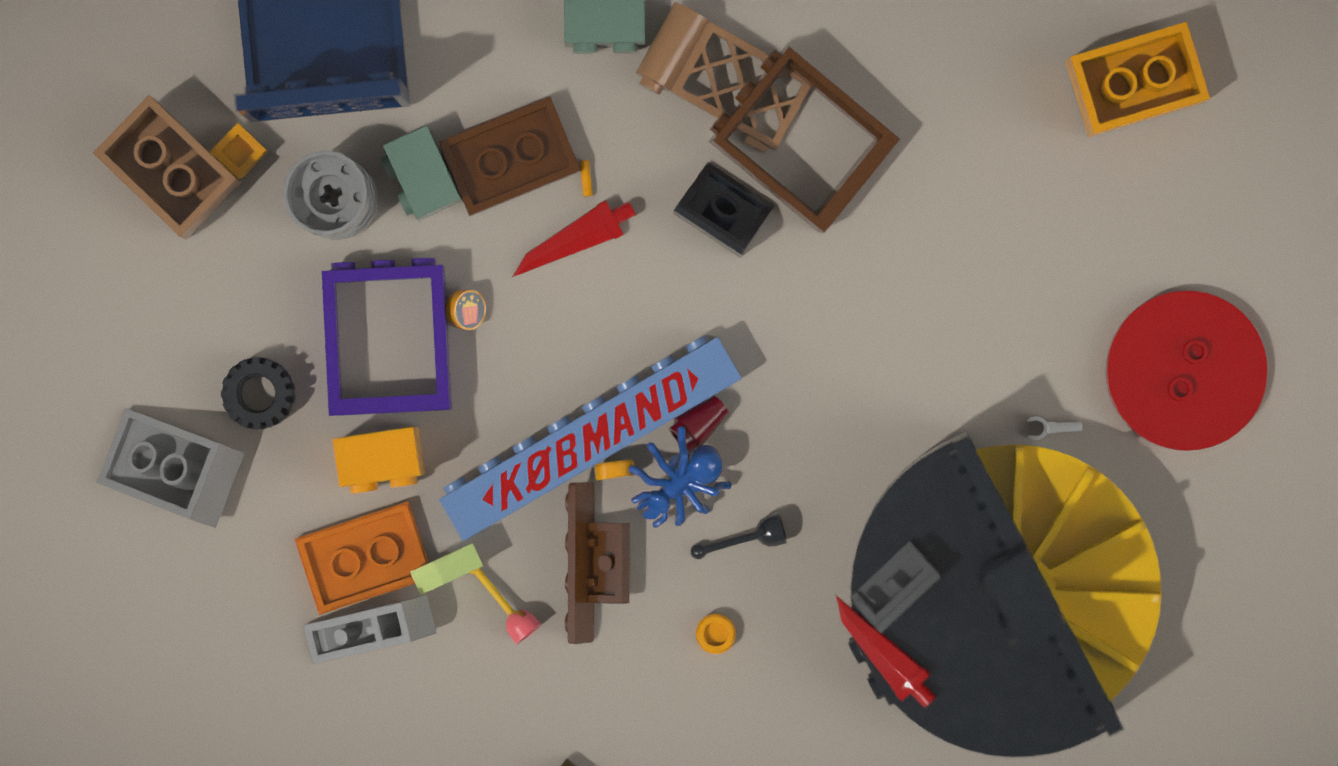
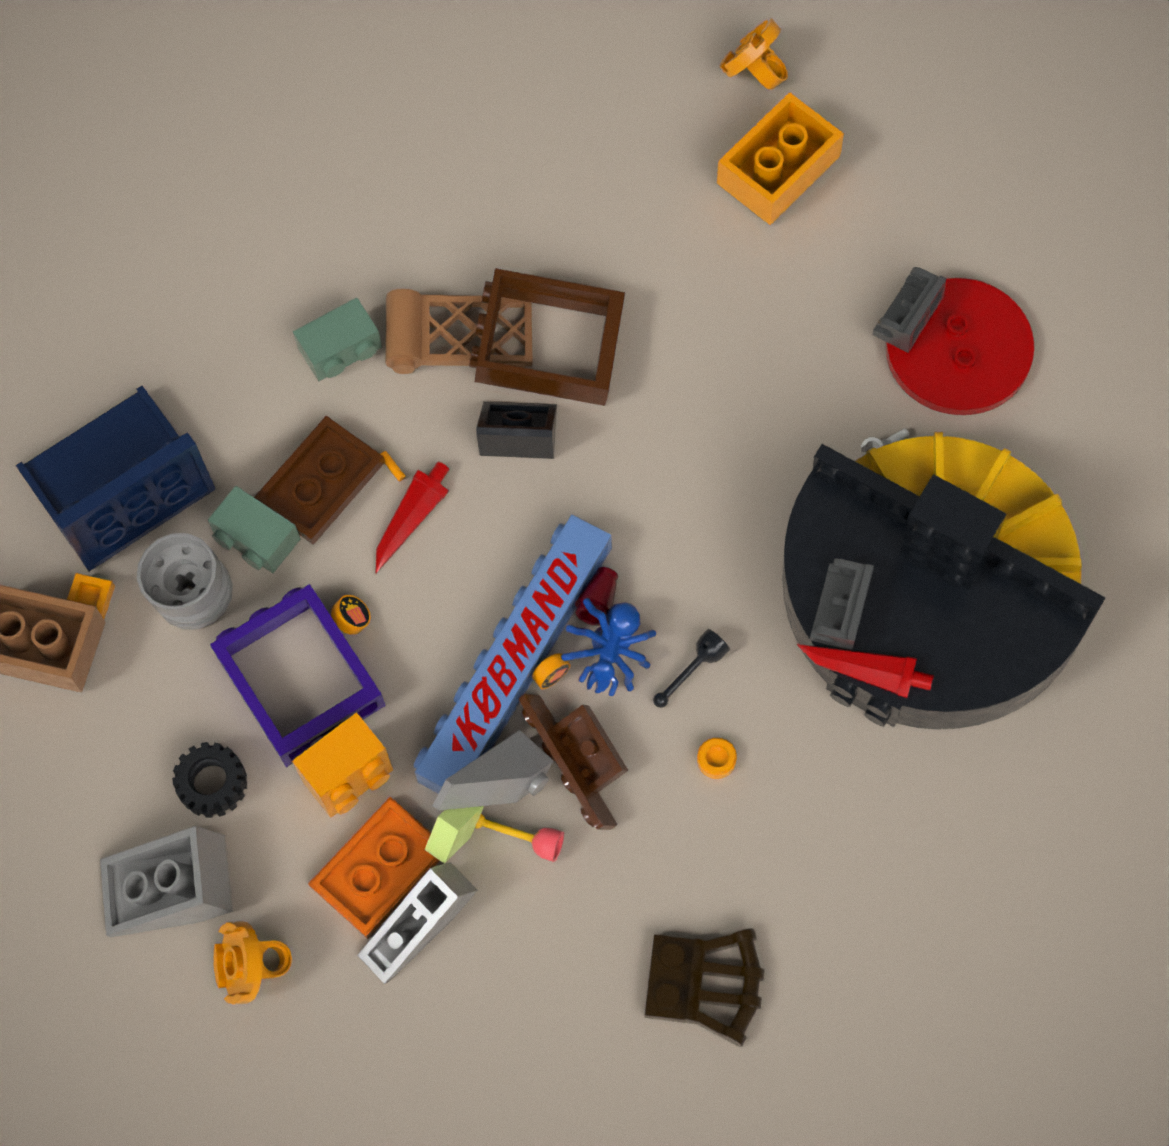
camera: 30 degrees left, 20 degrees down
(197, 581) = (240, 961): none -> light orange tile
(512, 549) = (497, 776): none -> light grey slope
(1158, 313) = (911, 309): none -> dark grey hinge

